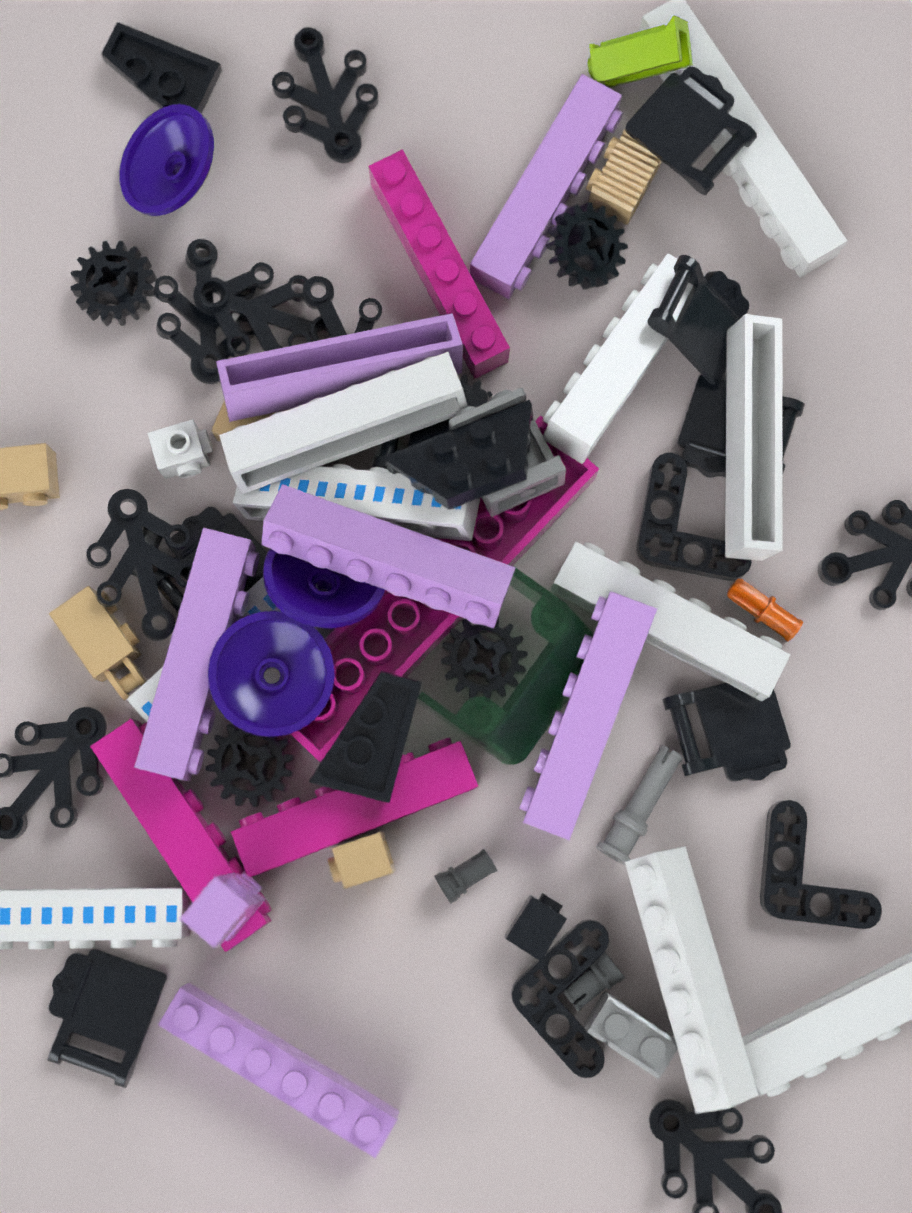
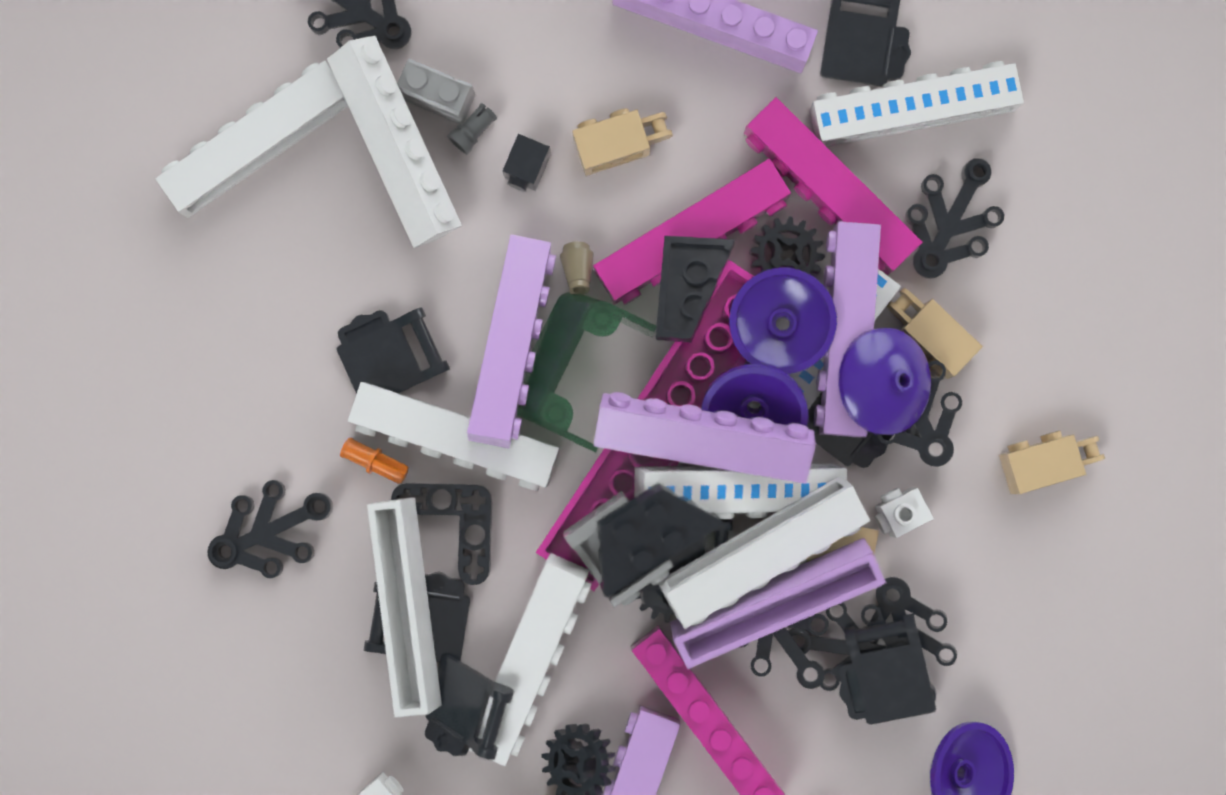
camera: 170 degrees right, 5 degrees up
(98, 293) = (1004, 644): black gear -> none
(183, 587) = (871, 382): none -> dark purple dish
(223, 907) = (782, 121): lavender arch -> none
(236, 269) = (886, 681): none -> black piece
(361, 860) = (677, 187): tan brick -> none
(423, 936) = (617, 139): none -> tan brick
(458, 879) = (593, 193): dark grey pin -> none
(467, 667) = (619, 366): black gear -> none
(496, 790) = (577, 266): none -> dark tan cone
(550, 1005) = (504, 105): black beam -> none
(631, 822) = (461, 261): light grey pin -> none
(791, 879) = (321, 237): black beam -> none

